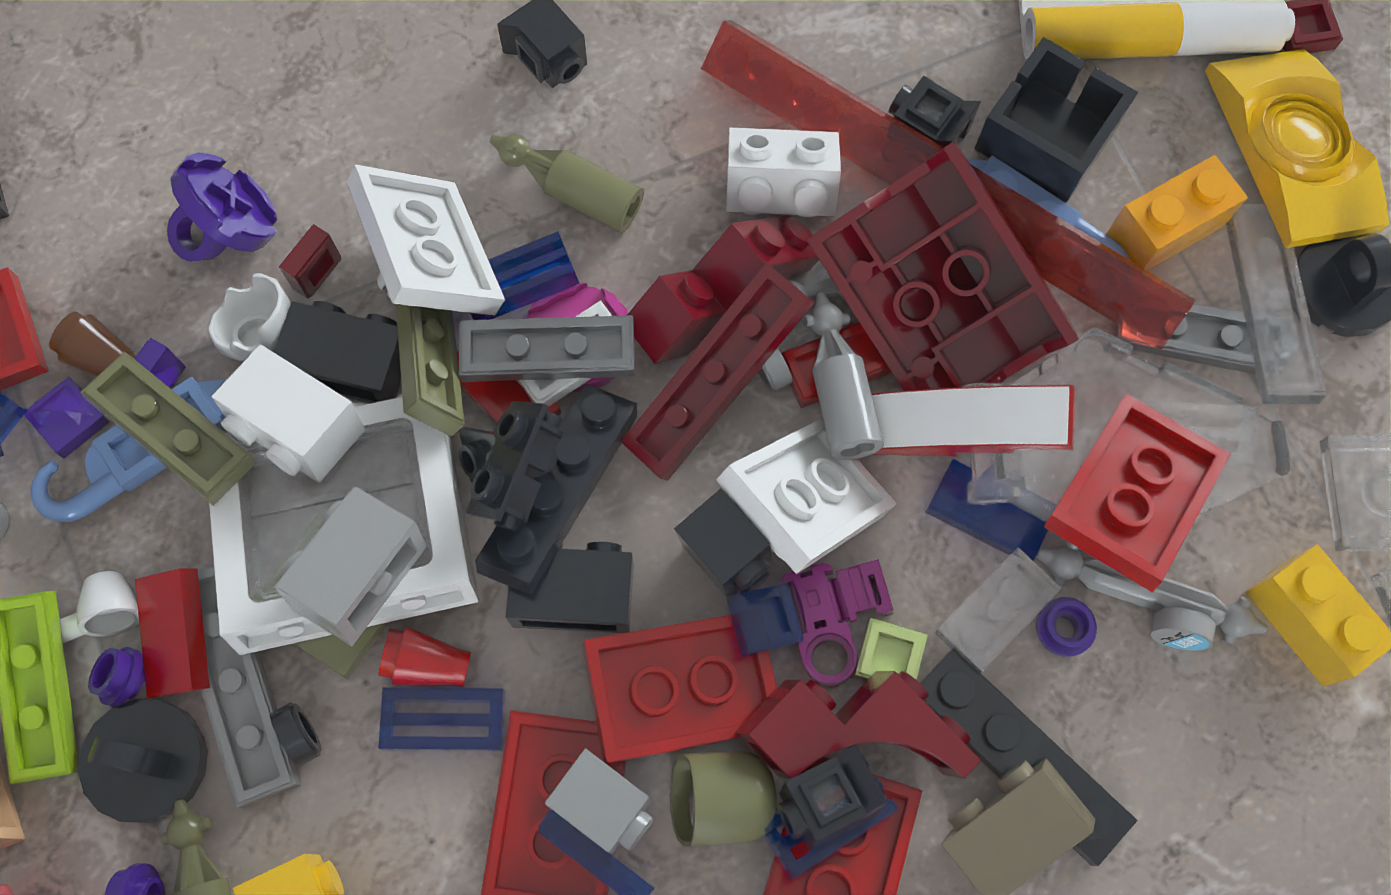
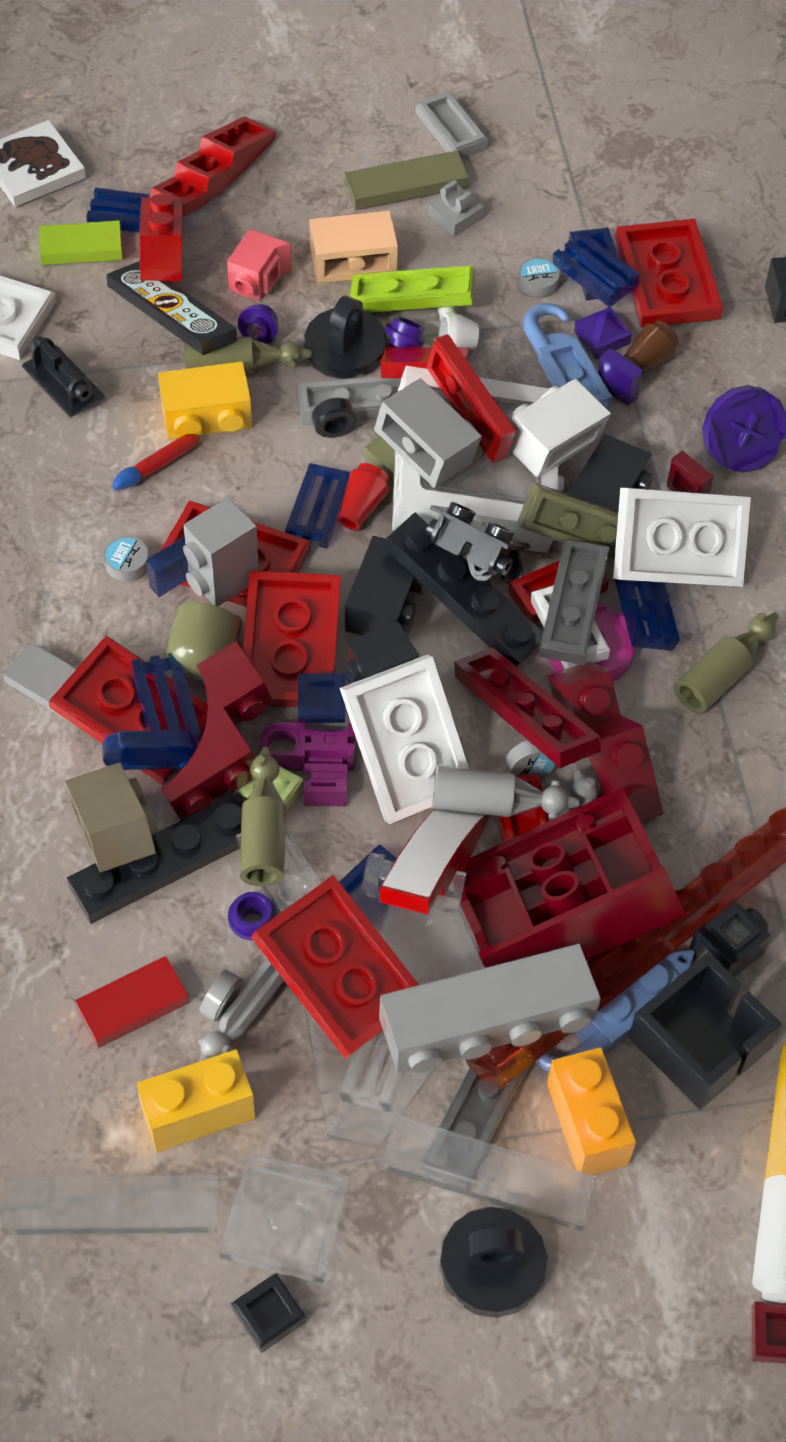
camera: 105 degrees right, 15 degrees down
(168, 428) = (577, 358): olive tile -> none
(250, 318) = (650, 434): white hair -> none
(269, 528) = (470, 397): none -> red tile
(783, 172) = (698, 804): white brick -> none
(830, 799) = (174, 681): black window -> none
(915, 810) = (149, 749): none -> clear blue tile
(974, 634) = (263, 826): none -> olive wheel
(1146, 312) = (488, 1009): none -> light grey brick
(1217, 734) = (132, 1001): none -> red tile
(1300, 147) = (643, 1256): yellow slope -> none

